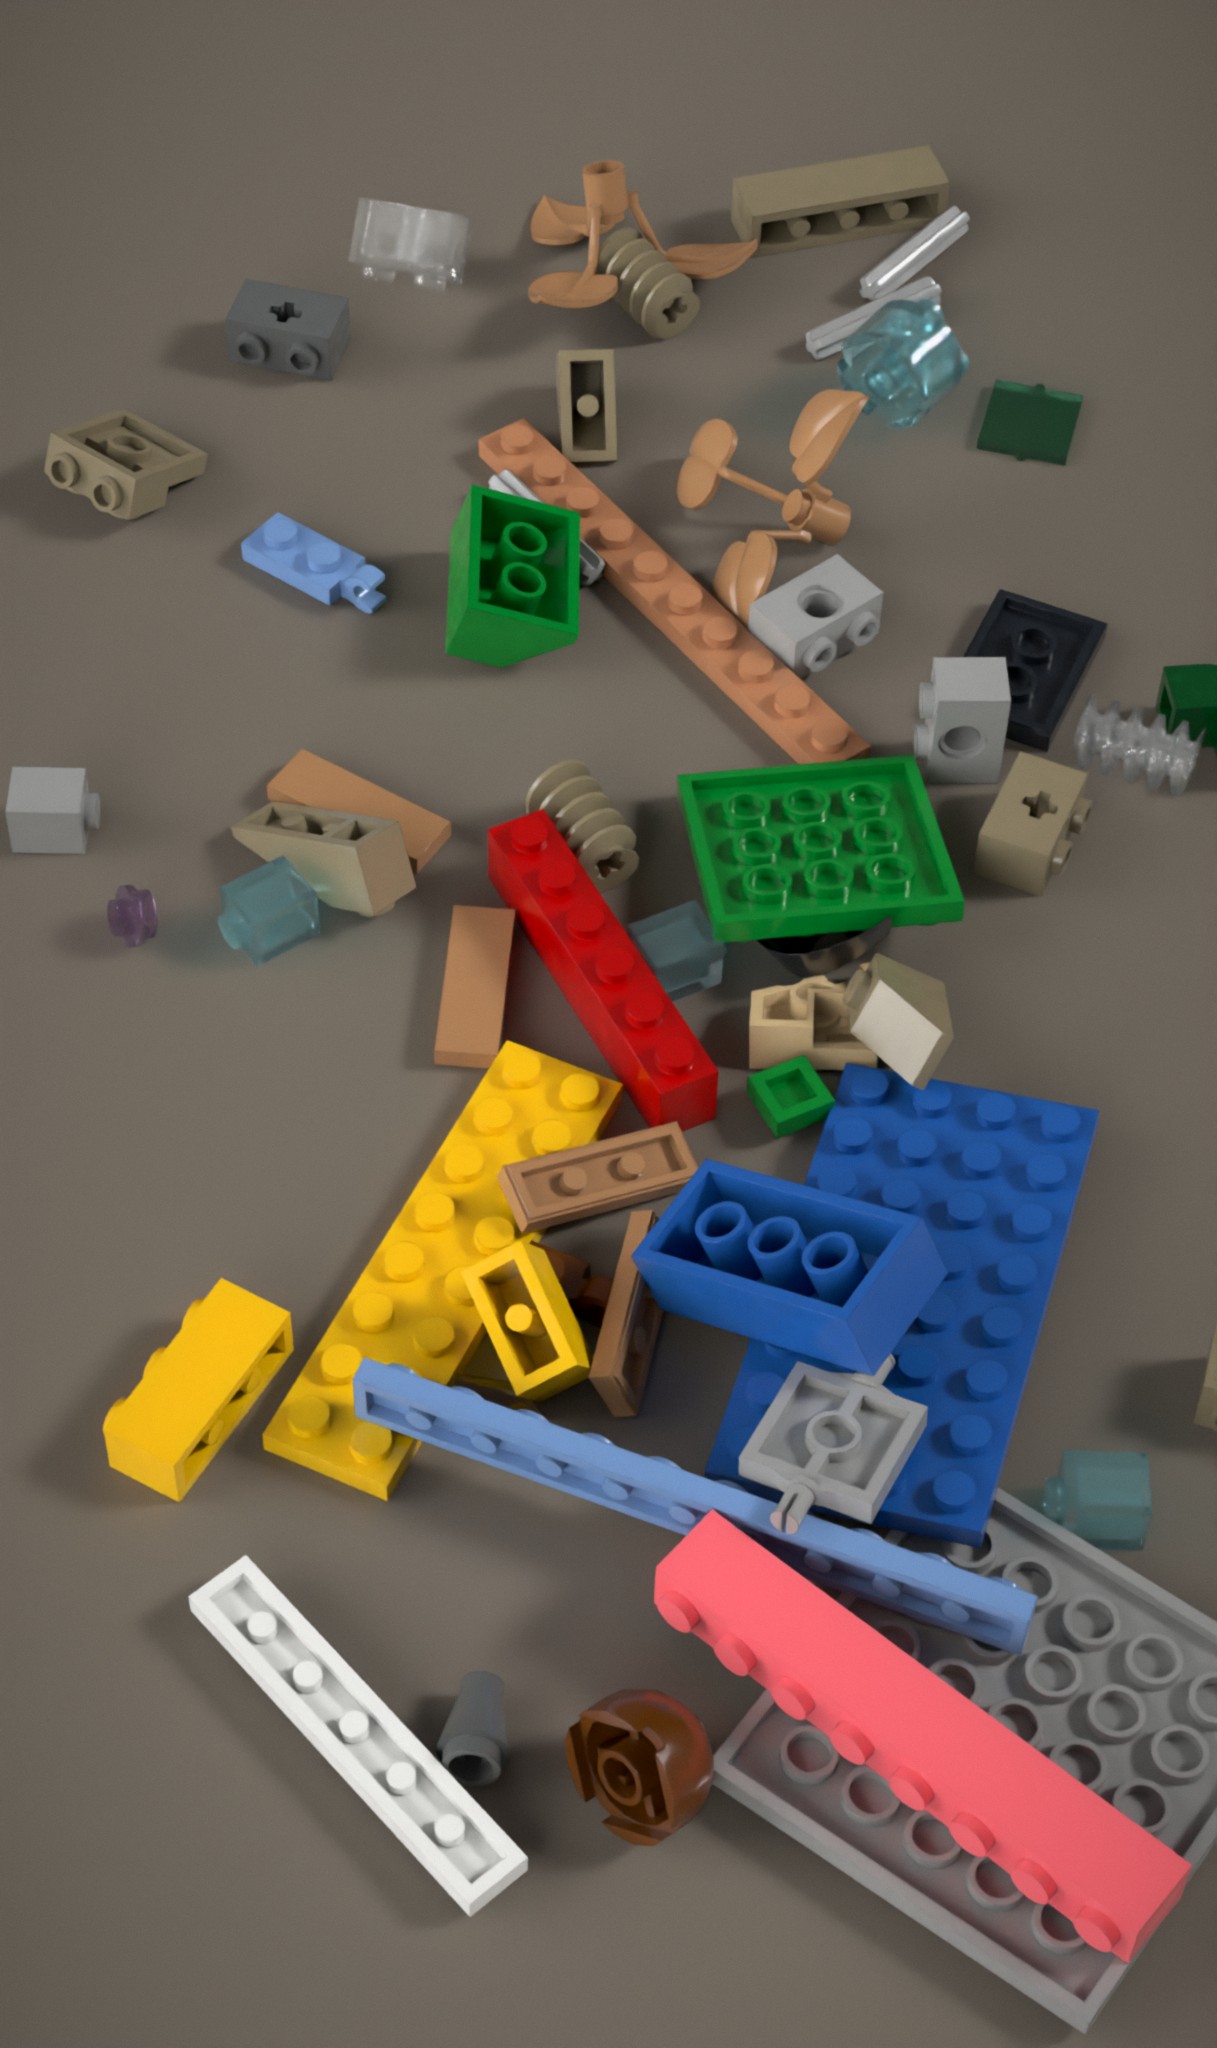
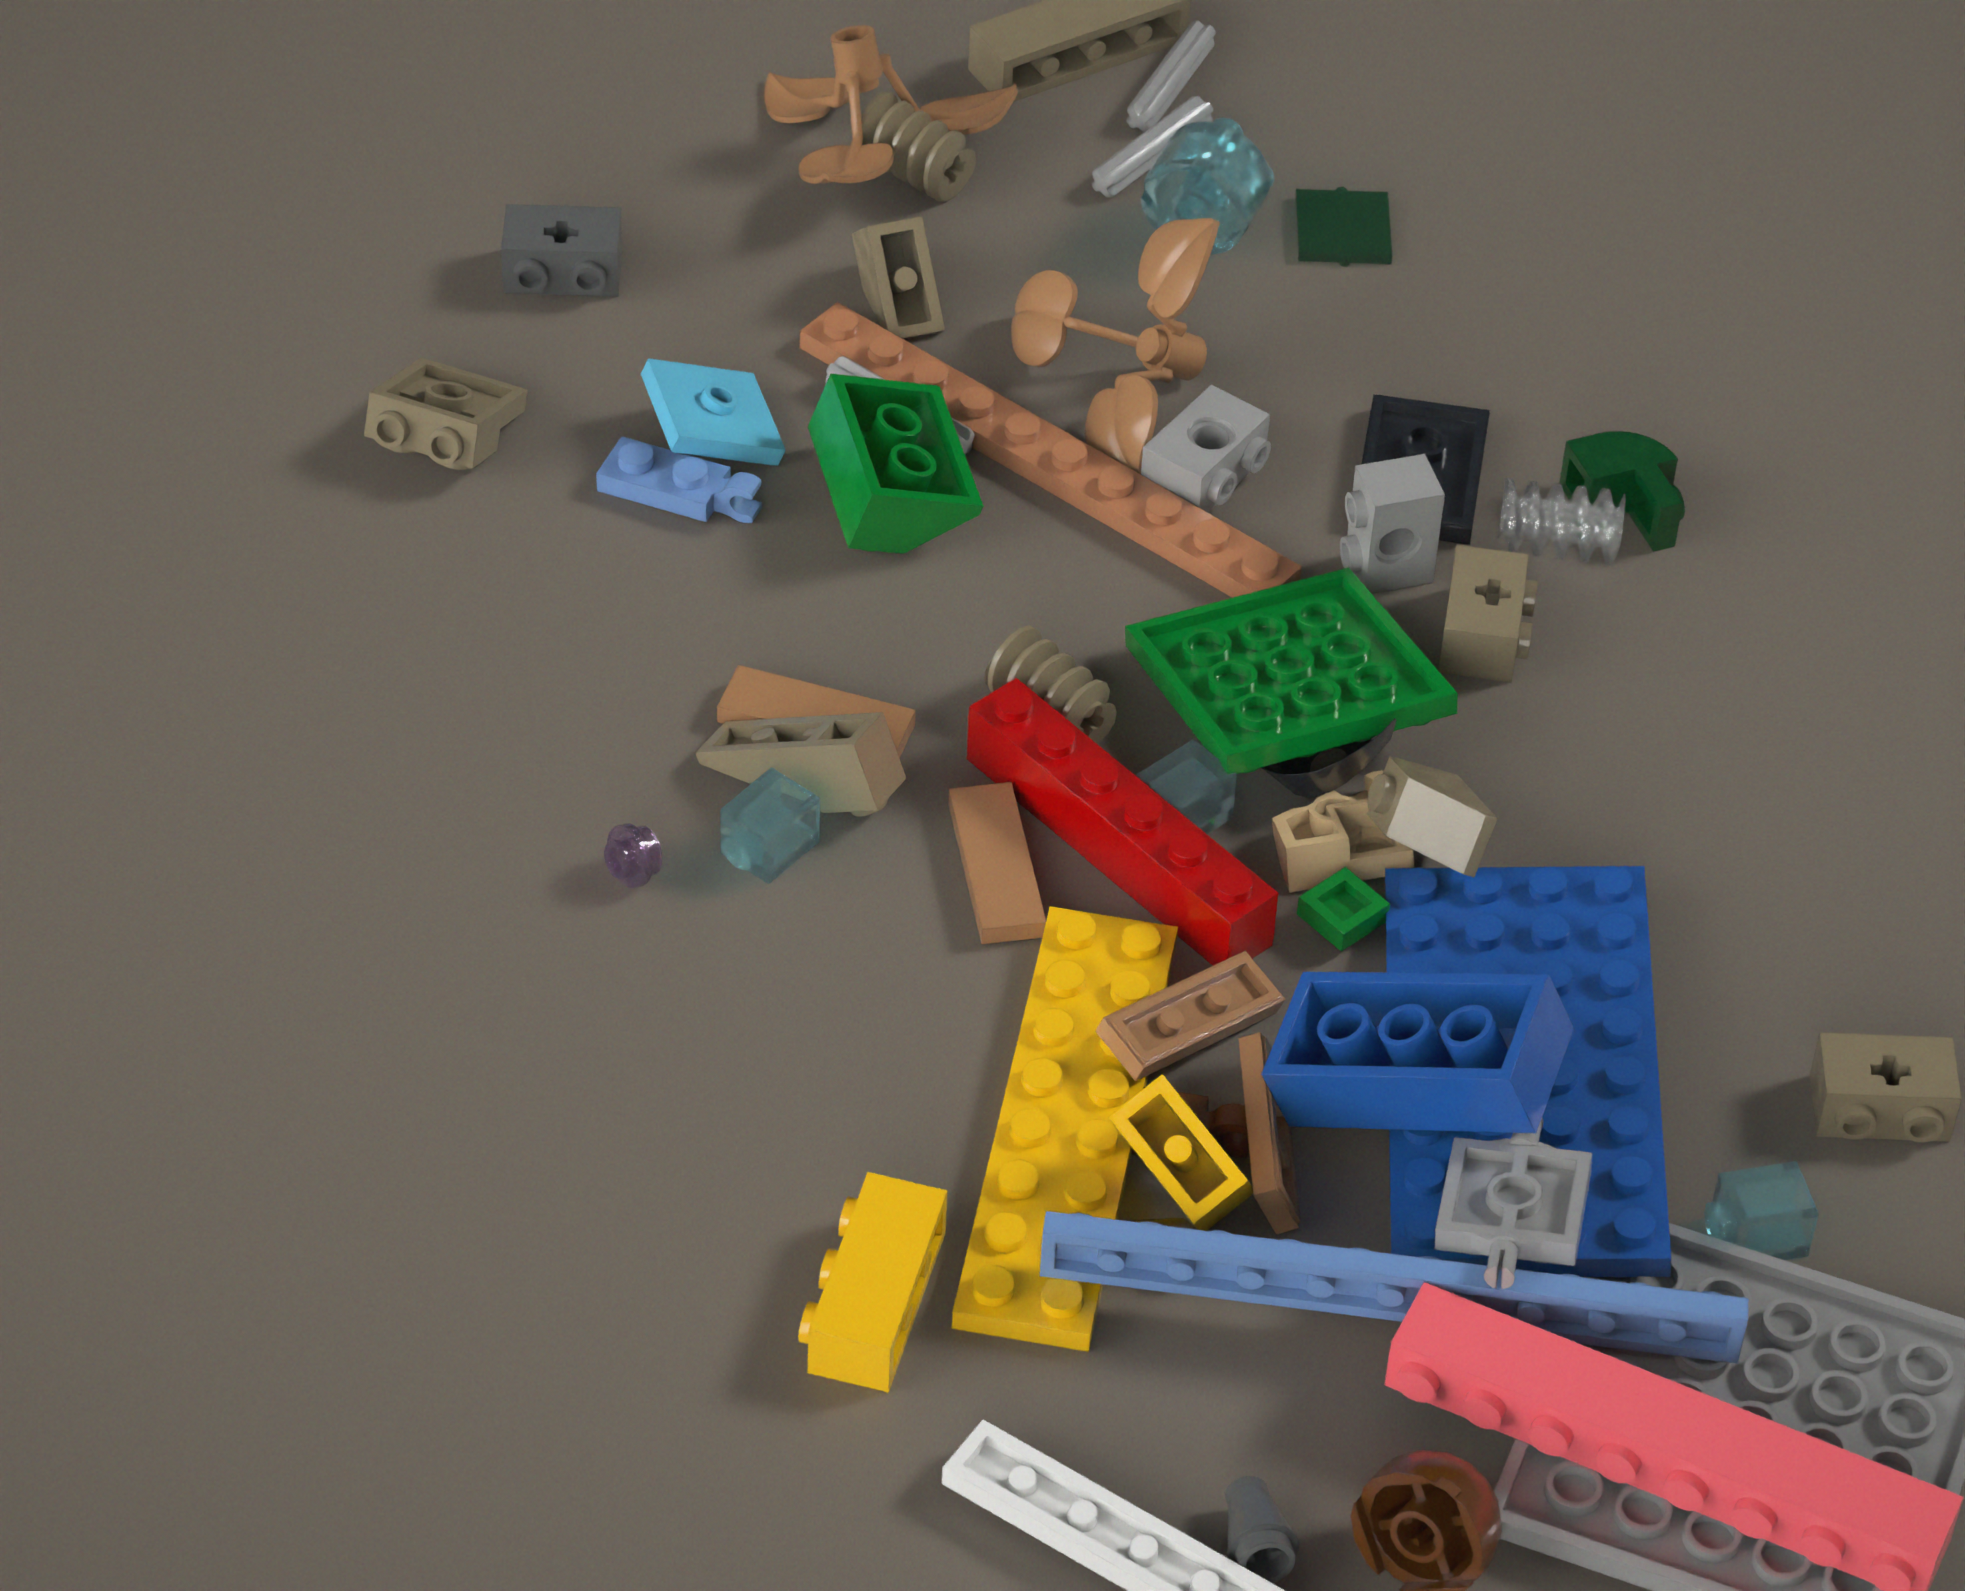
camera: 15 degrees left, 5 degrees down
(50, 810) = (509, 767): light grey brick -> none
(366, 503) = (712, 412): none -> medium azure plate
(410, 243) = (658, 142): clear brick -> none

